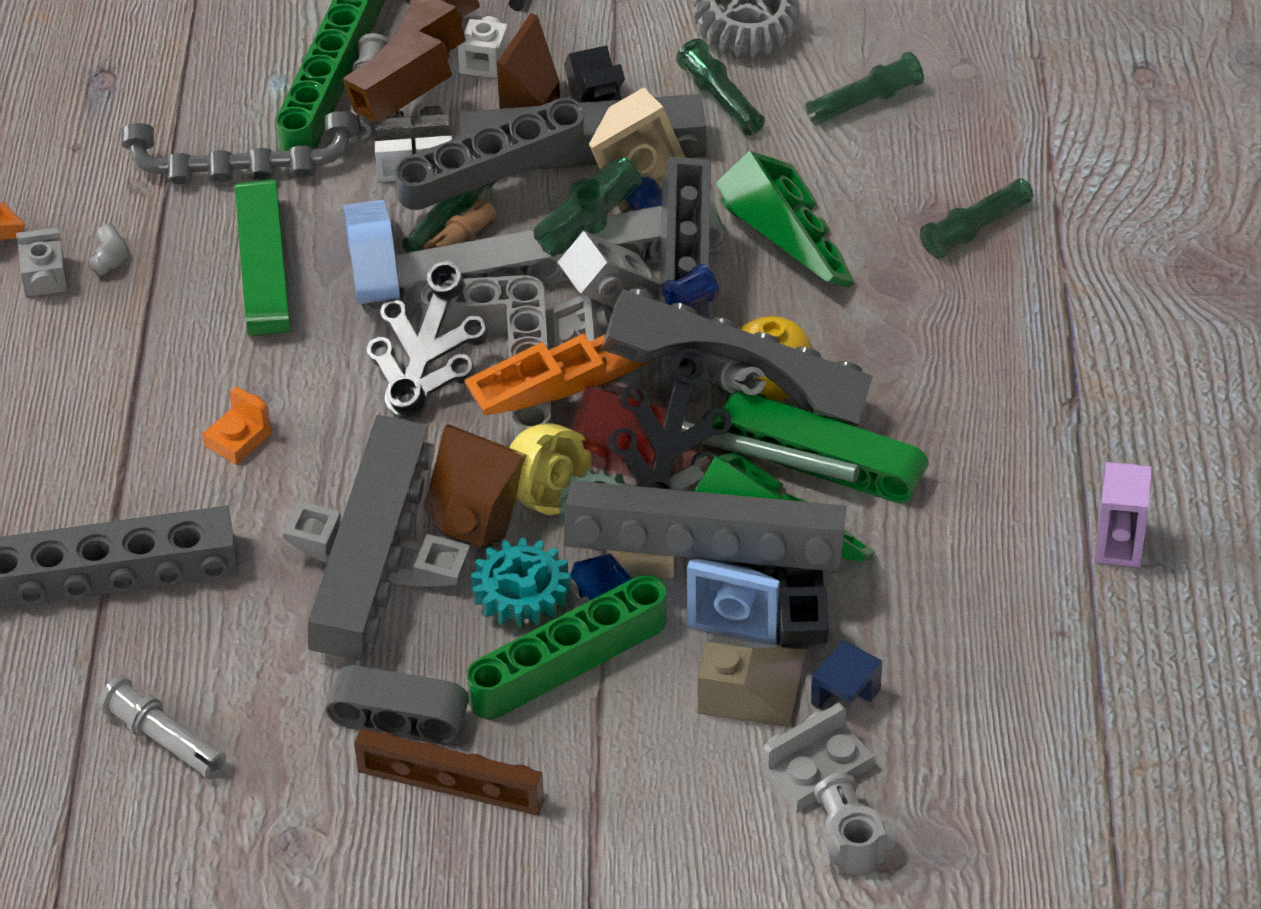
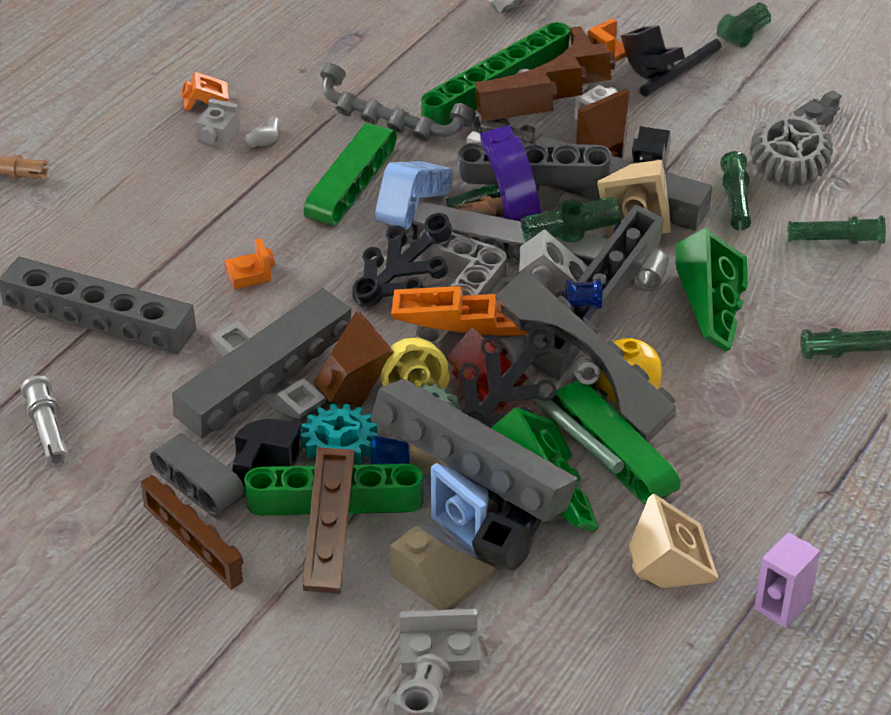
camera: 30 degrees right, 5 degrees down
(452, 631) = (266, 445): none -> black brick
(484, 175) = (512, 173): none -> dark purple arch
(603, 682) = (328, 520): none -> reddish brown plate
(847, 674) = (501, 593): dark blue panel -> none
(973, 539) = (670, 547): none -> tan slope

